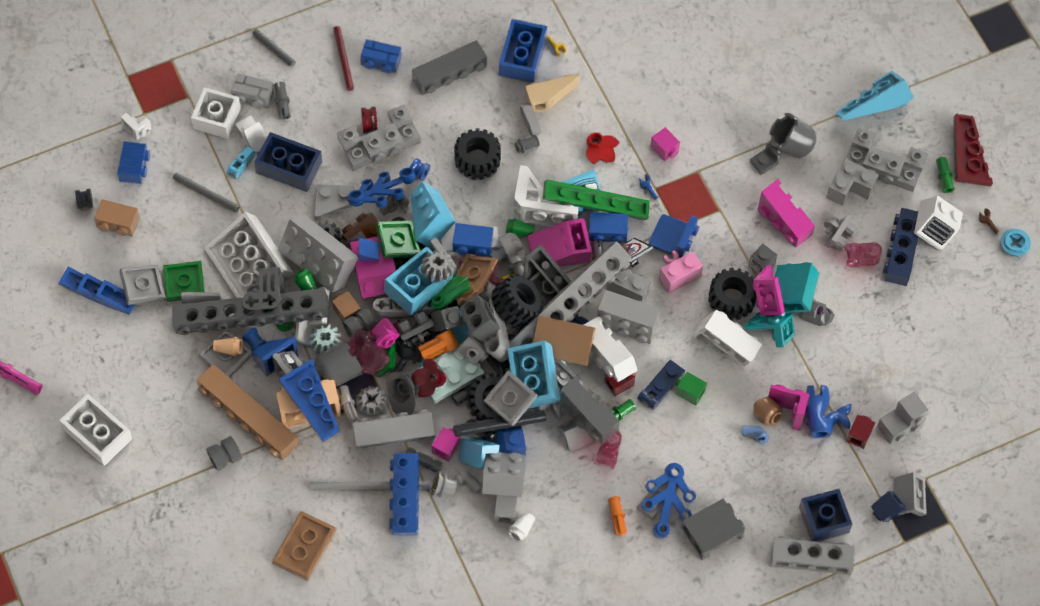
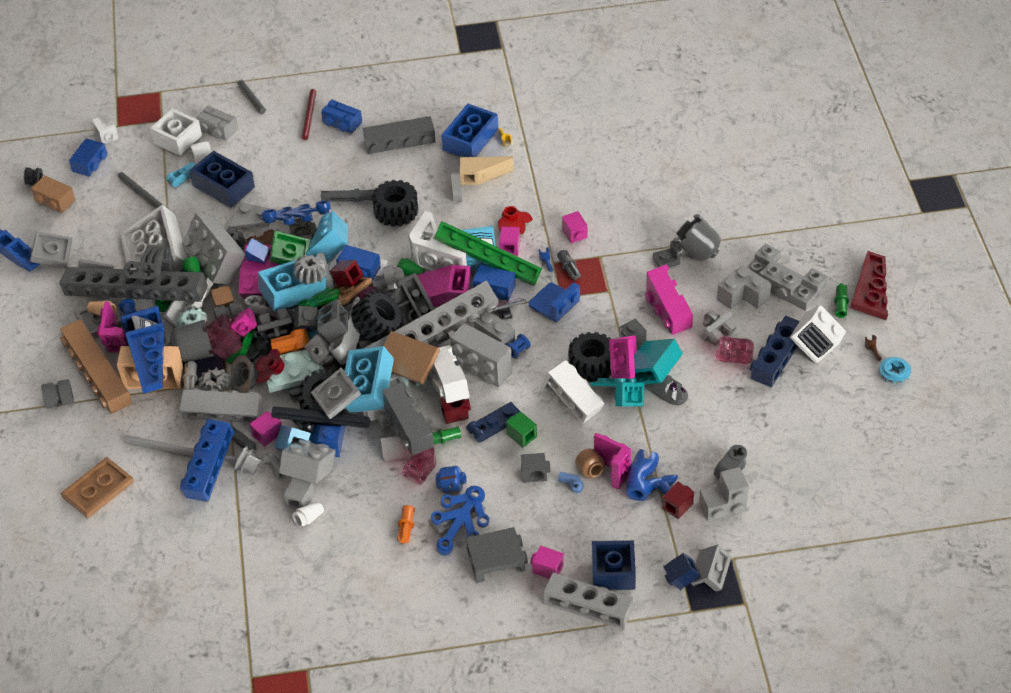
camera: 20 degrees right, 15 degrees down
(183, 278) = (90, 250): green tile -> none
(260, 378) = (111, 336): none -> dark pink bracket
(282, 100) = (239, 135): dark grey pin -> none
(367, 119) = (309, 160): dark red wheel -> none
(382, 142) = (312, 180): light grey bracket -> none
(420, 169) = (338, 206): blue wheel -> none
(425, 152) = (347, 195): none -> dark grey pin
(469, 257) = (346, 273): none -> dark red brick
(525, 144) = (445, 205): dark grey pin -> none
(607, 174) = (510, 239): none -> dark pink brick
(643, 459) = (450, 479): none -> blue head
(656, 295) = (519, 345): none -> blue bush
(673, 189) = (568, 264): none -> dark grey axle
(680, 271) = (548, 330): bright pink brick -> none
(717, 427) = (534, 467): none -> dark grey brick
(762, 526) = (547, 562): none -> dark pink brick
(888, 93) = (804, 224): medium azure wedge -> none
(897, 383) = (734, 458): none -> dark grey piece

